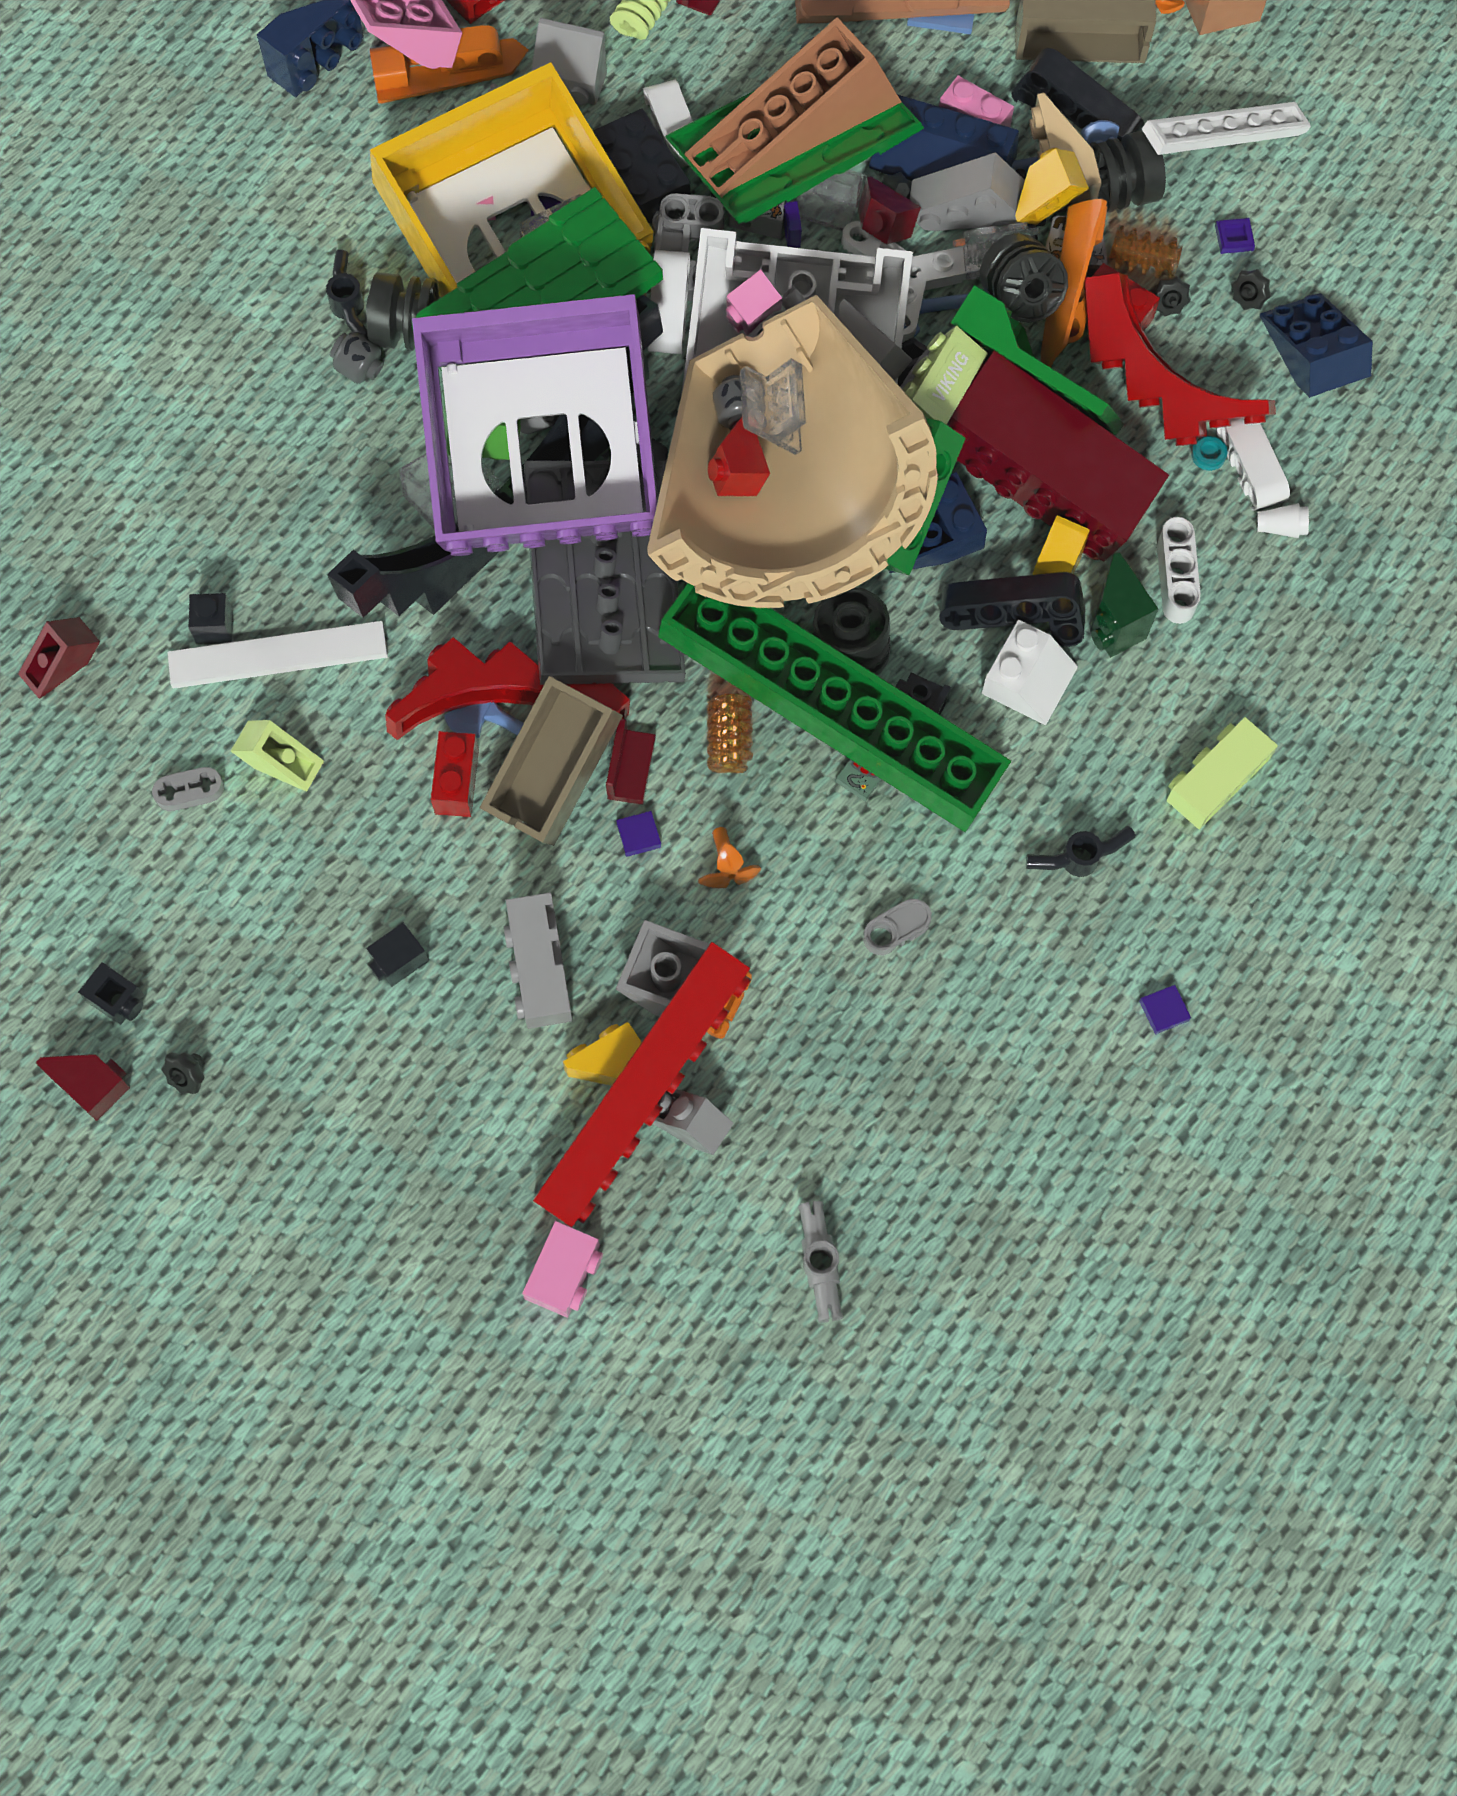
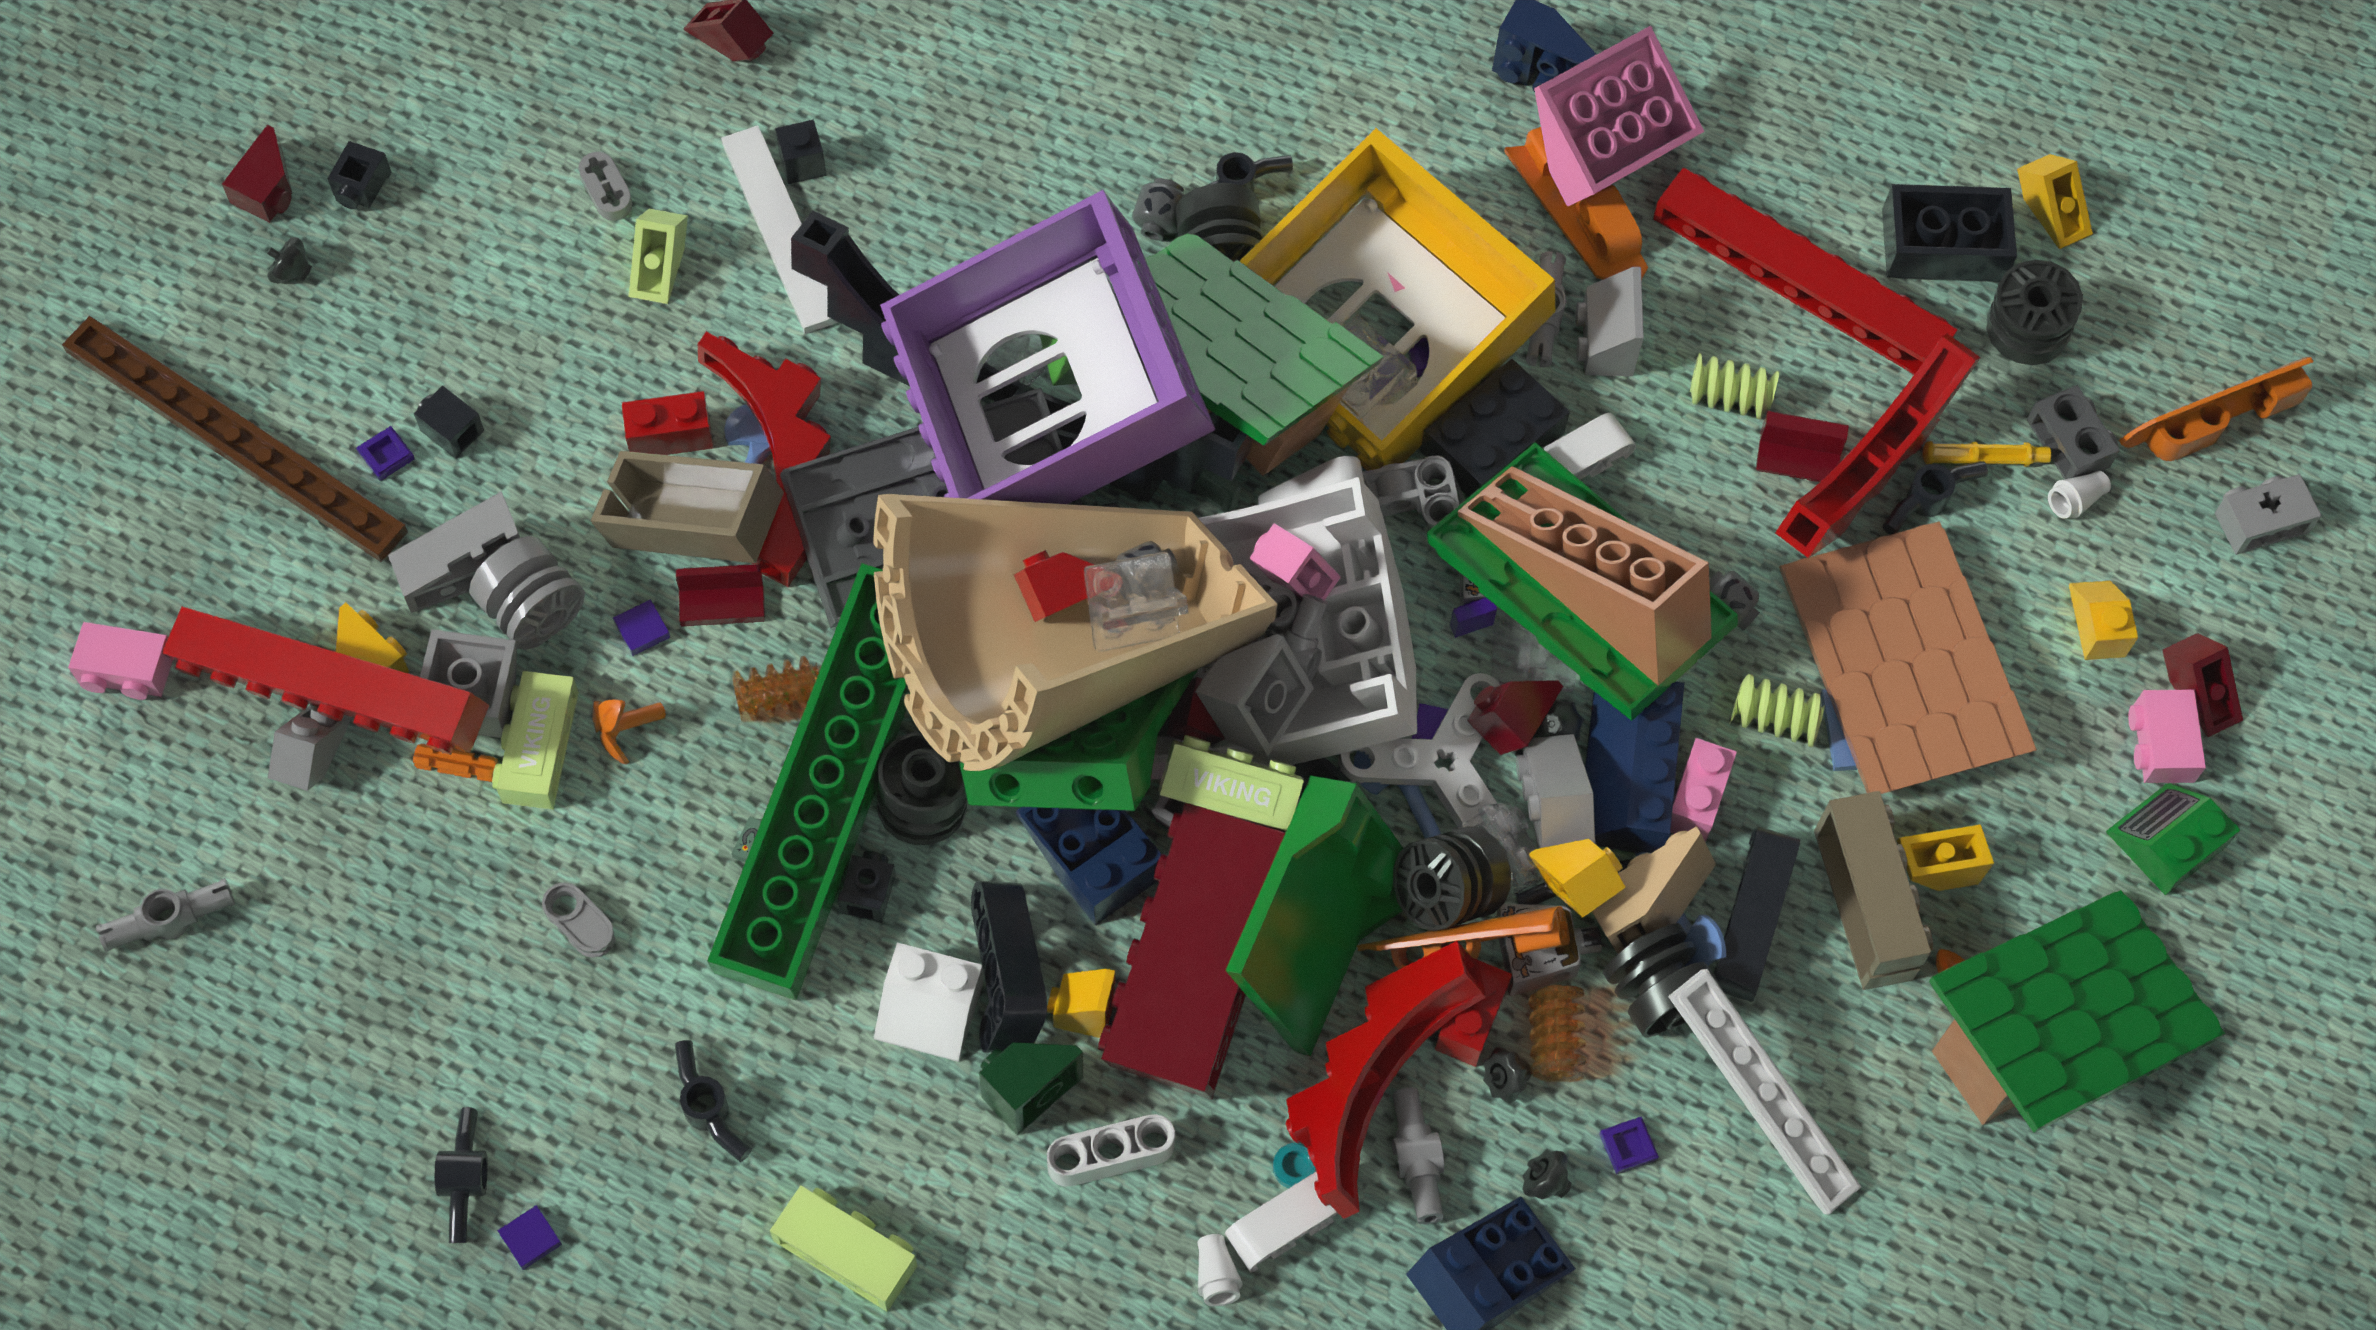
camera: 75 degrees right, 5 degrees down
(353, 1148) = (235, 439): none -> reddish brown plate
(408, 1018) = (385, 453): none -> dark purple tile
(590, 910) = (526, 592): none -> light grey wheel
(739, 930) = (536, 740): none -> yellowish green brick
(921, 48) = (1778, 709): none -> yellowish green piece
(1104, 1050) = (461, 1174): none -> black piece
(1222, 367) = (1418, 1156): none -> light grey pin

